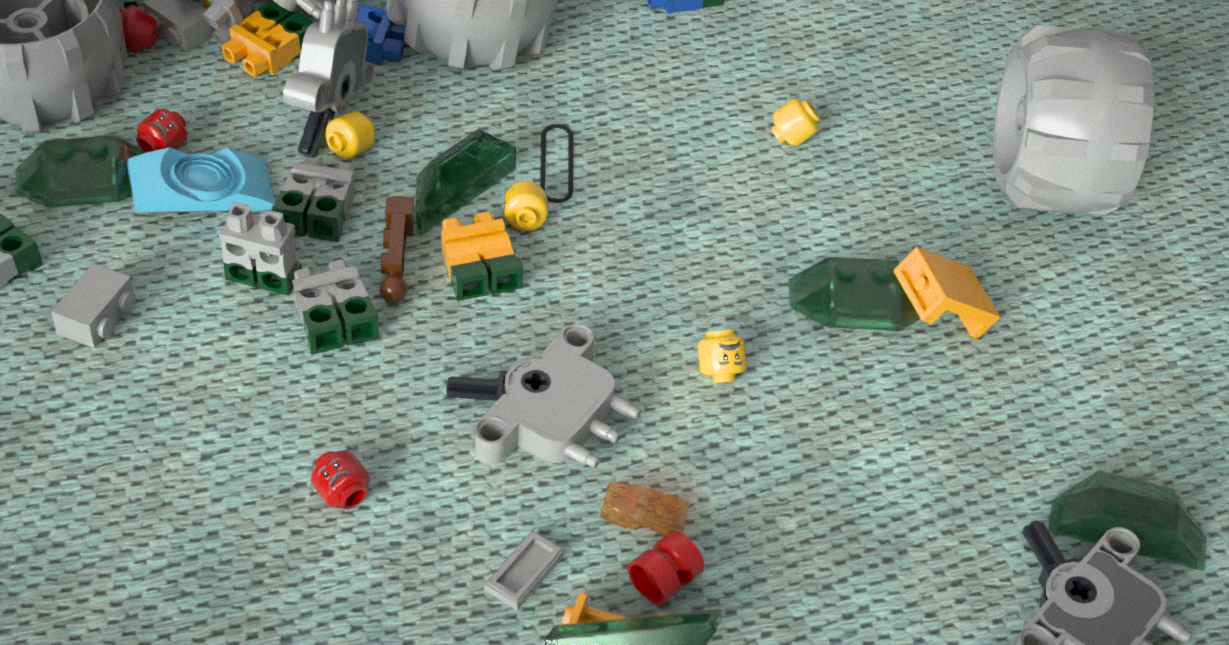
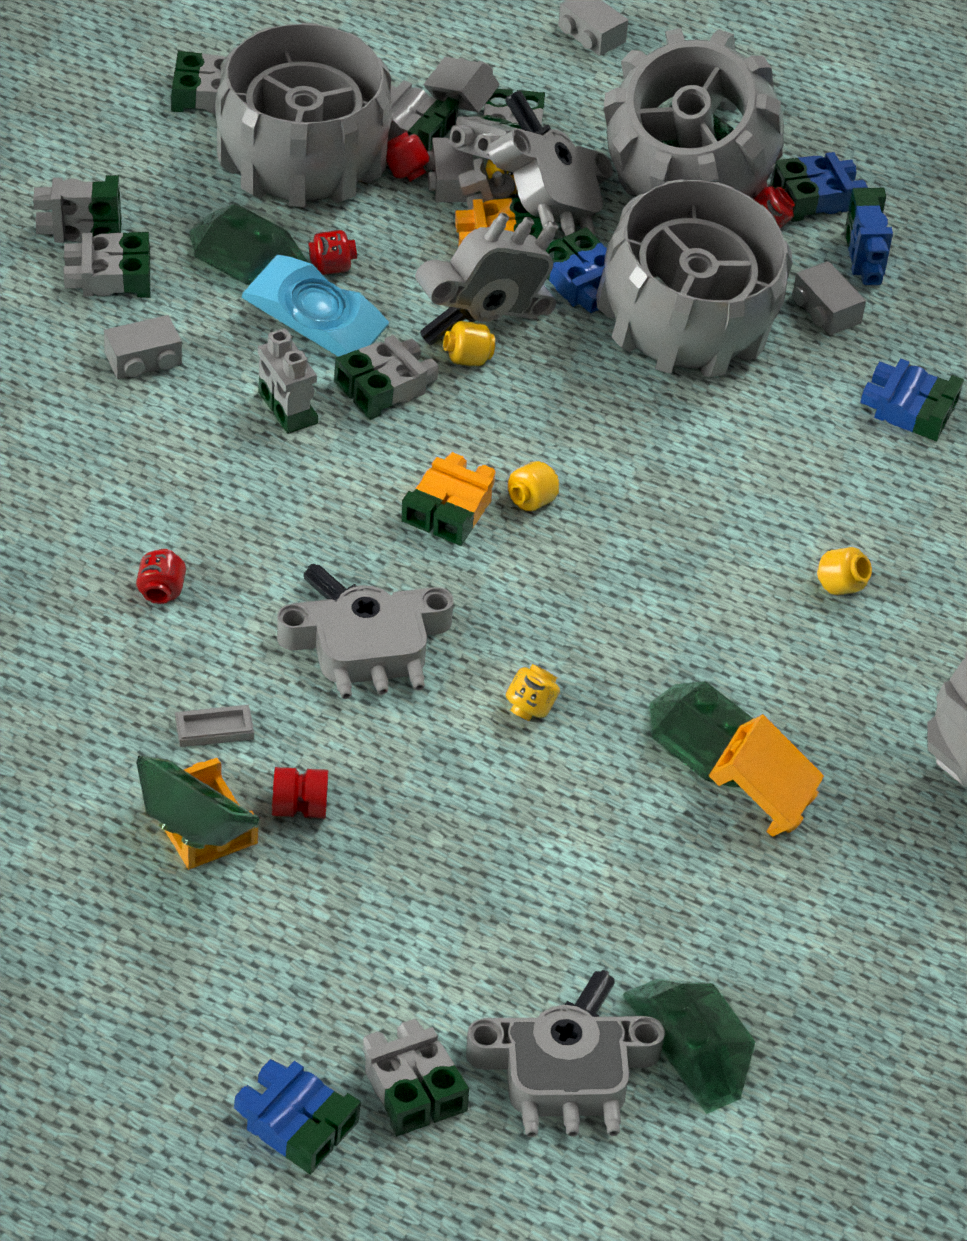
camera: 45 degrees right, 0 degrees up
(334, 301) = (299, 460): hips -> none
(398, 226) = (398, 449): reddish brown plate -> none
(461, 176) = (506, 429): clear green wedge -> none
(570, 162) = (617, 485): black piece -> none
(637, 506) = (342, 749): clear orange slope -> none

